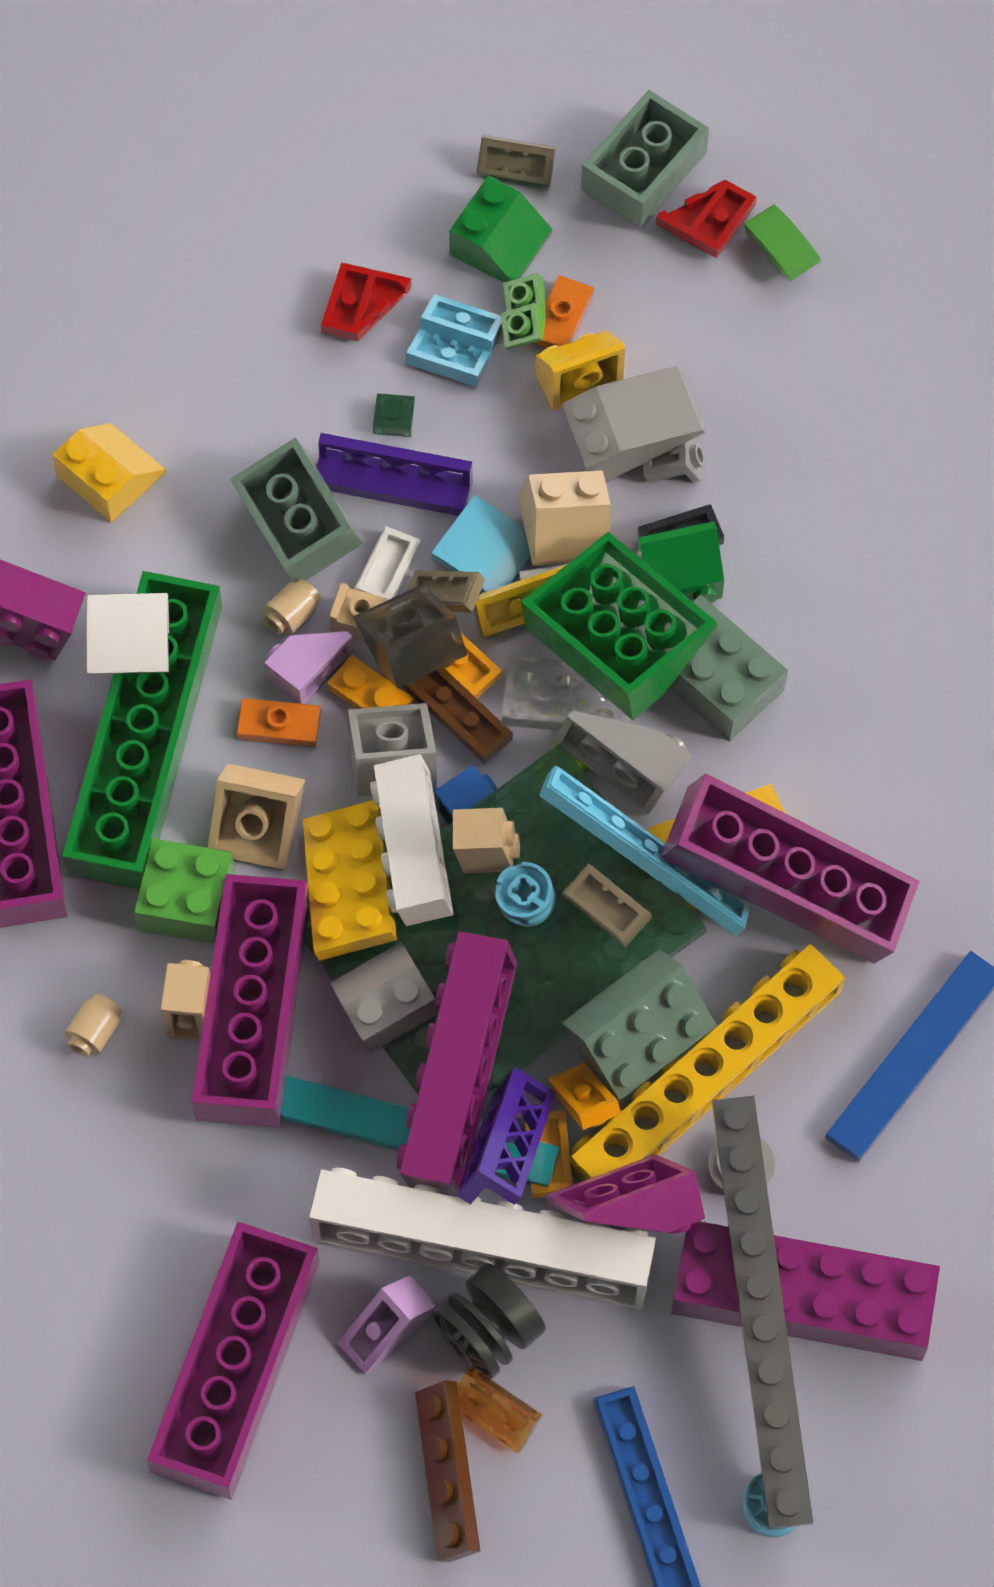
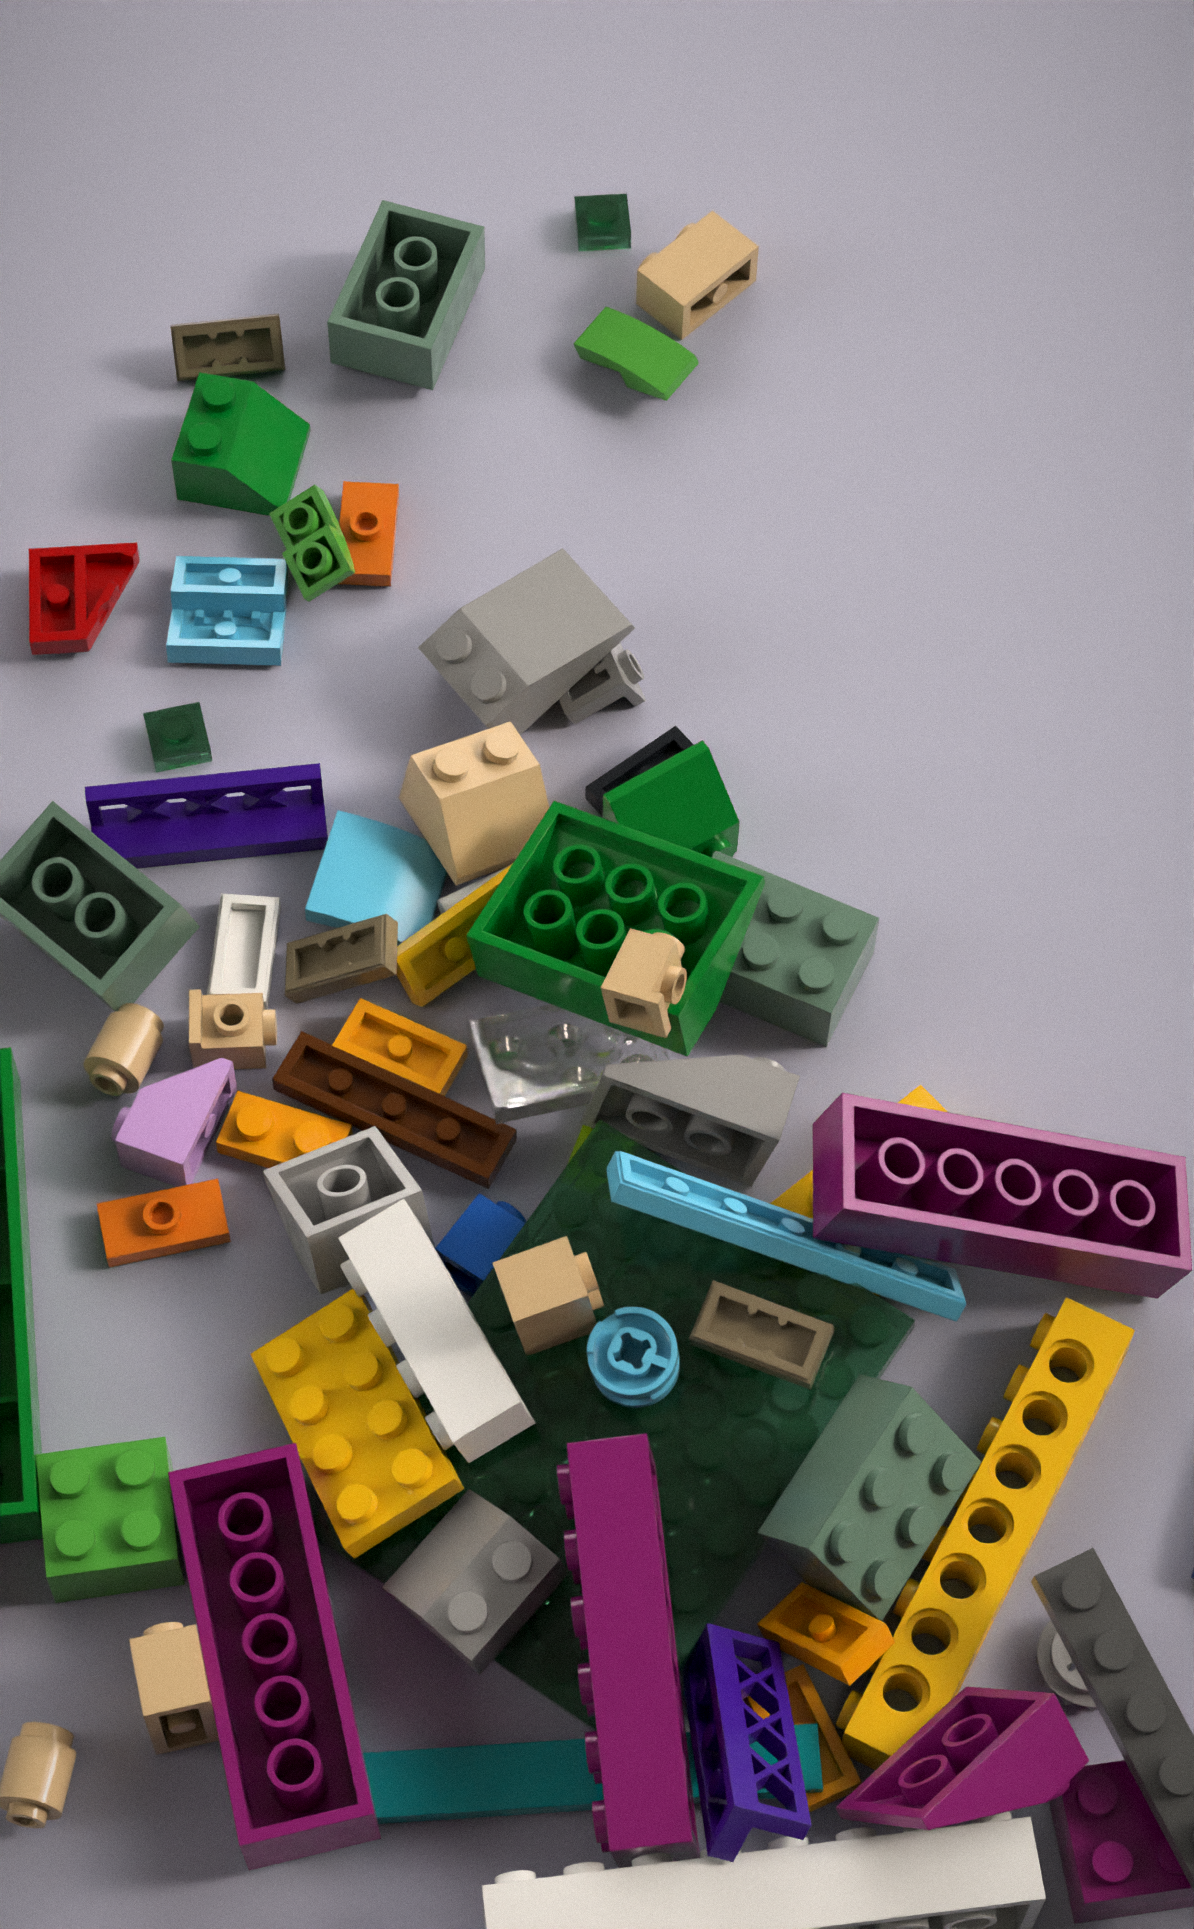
camera: 20 degrees left, 5 degrees down
(256, 815) = (178, 1370): tan slope -> none
(411, 635) = (321, 1033): clear smoke slope -> none
(579, 366) = (421, 593): yellow slope -> none
(613, 666) = (645, 982): none -> tan brick
(709, 217) = (523, 349): red wing -> none
(796, 142) = (602, 222): none -> clear green plate
(843, 198) = (696, 274): none -> tan brick

